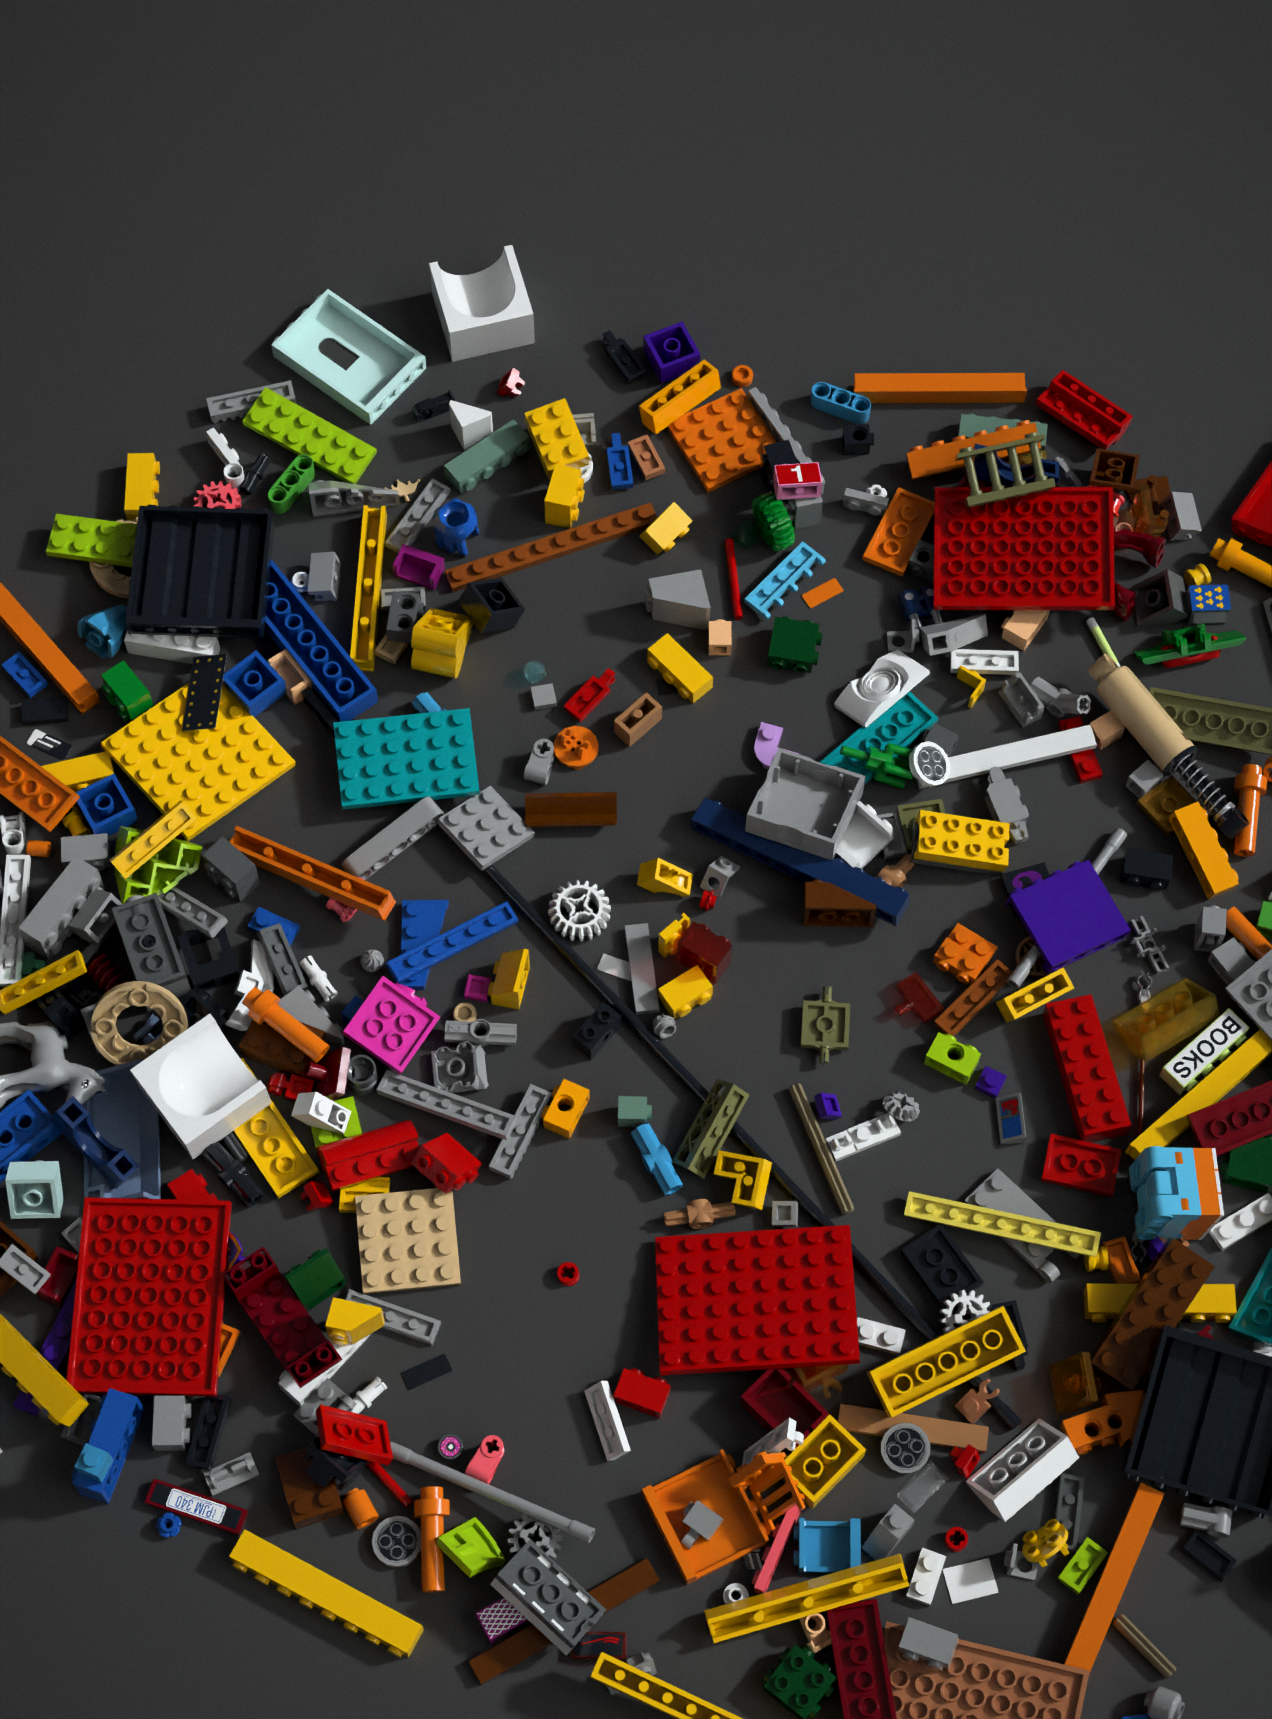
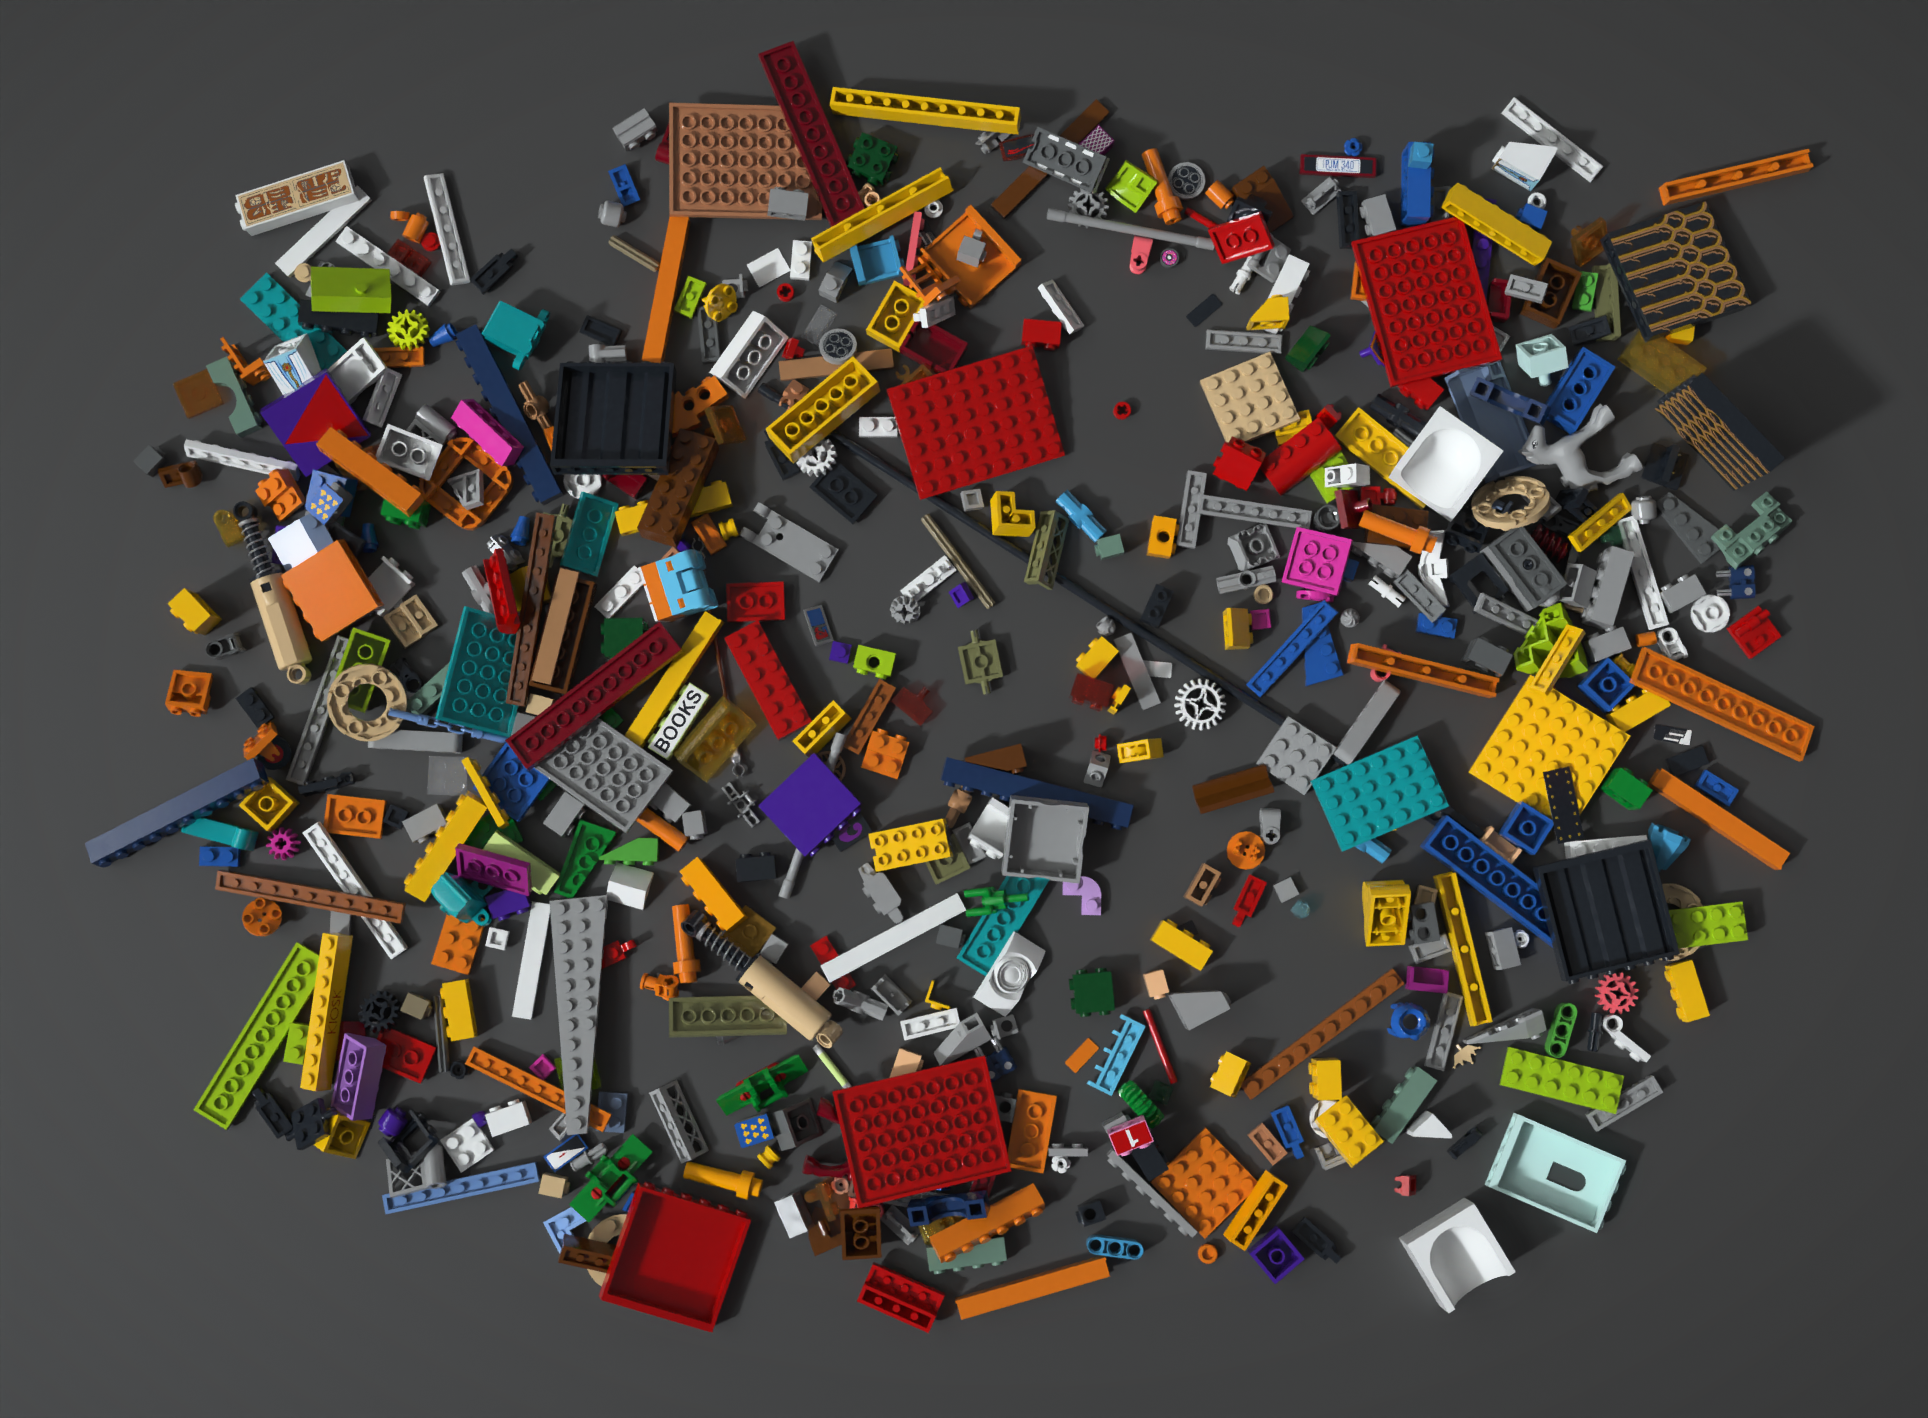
camera: 160 degrees right, 20 degrees up
(281, 1317) = (1321, 307): dark red slope -> none
(326, 1594) = (1225, 129): yellow brick -> none
(491, 605) = (1354, 955): black brick -> none
(699, 1214) = (1037, 481): medium nougat axle -> none
(929, 764) = (953, 907): tile -> none
(1002, 1224) = (805, 533): light yellow plate -> none
(1020, 488) = (955, 1173): olive fence -> none

